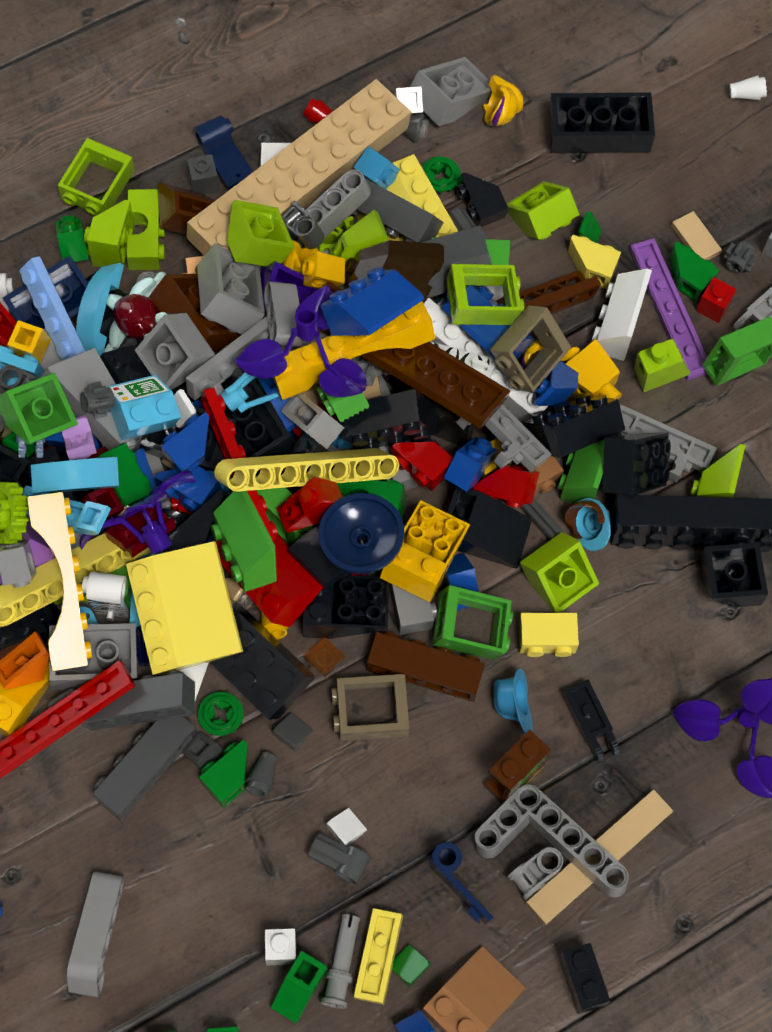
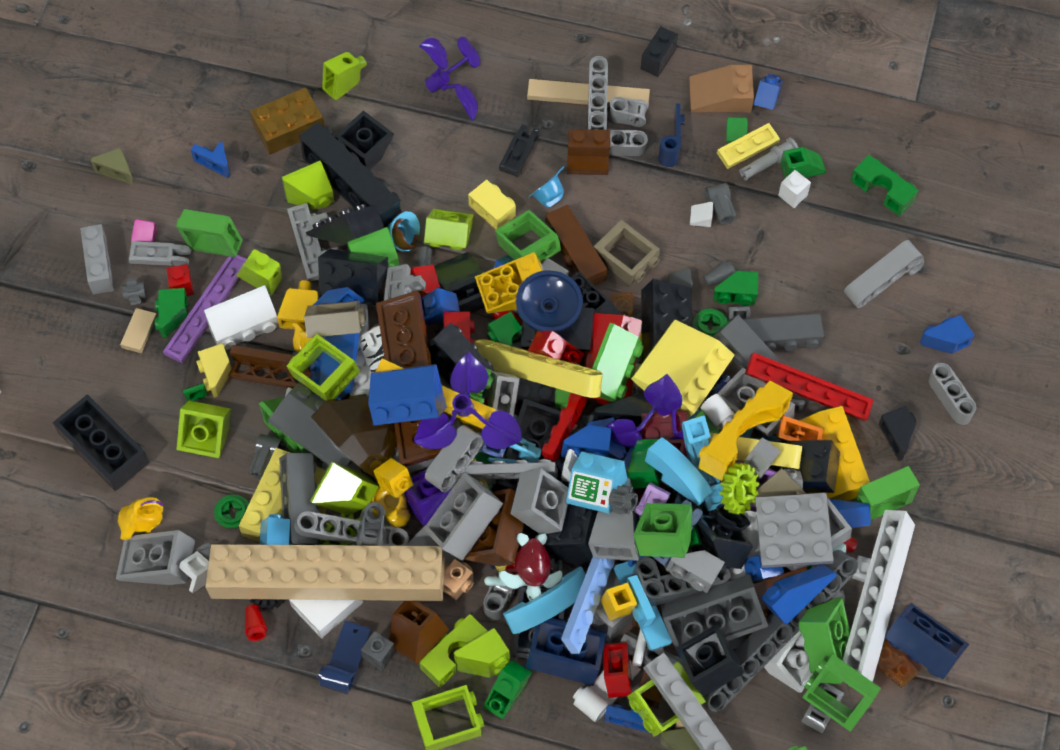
camera: 130 degrees left, 5 degrees down
(258, 234) = (408, 531): lime slope -> none
(482, 198) = (231, 464): black slope -> none

